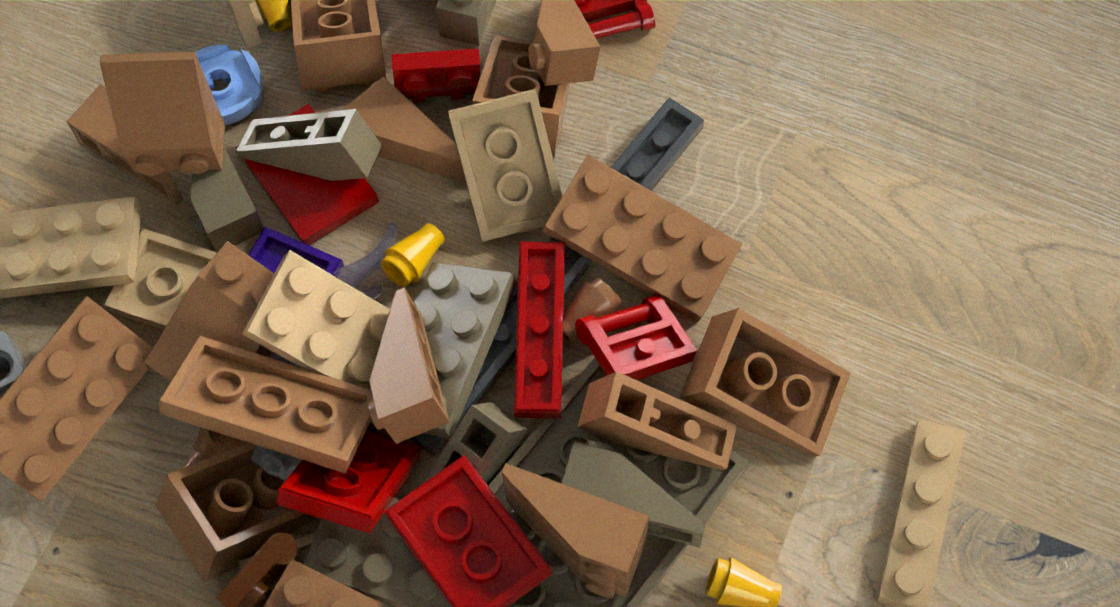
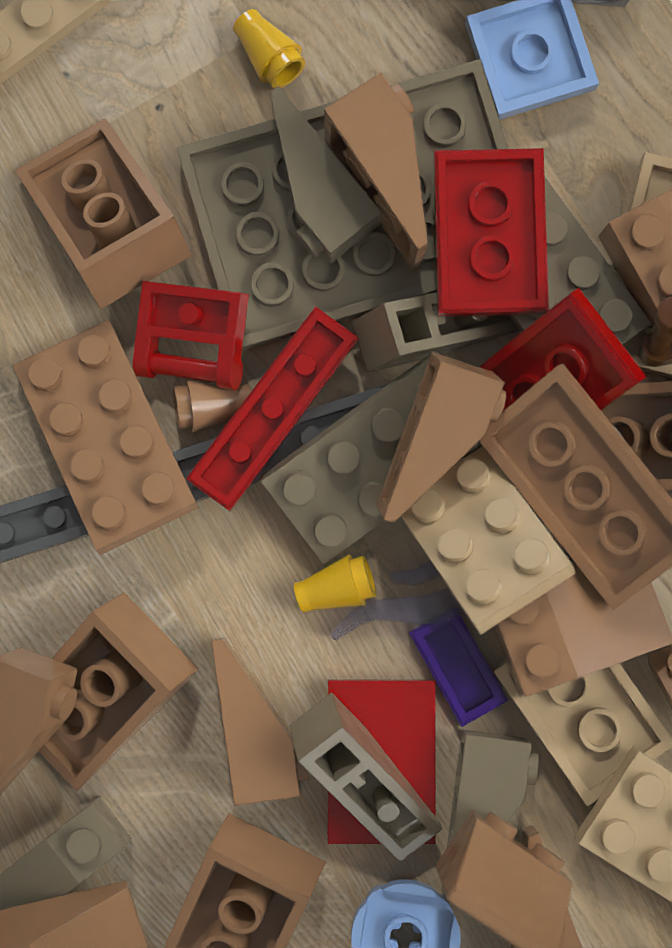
camera: 150 degrees left, 20 degrees up
(436, 73) = (158, 755): red plate -> none
(507, 164) = (180, 602): tan plate -> none
(655, 422) = (239, 230): medium nougat slope -> none

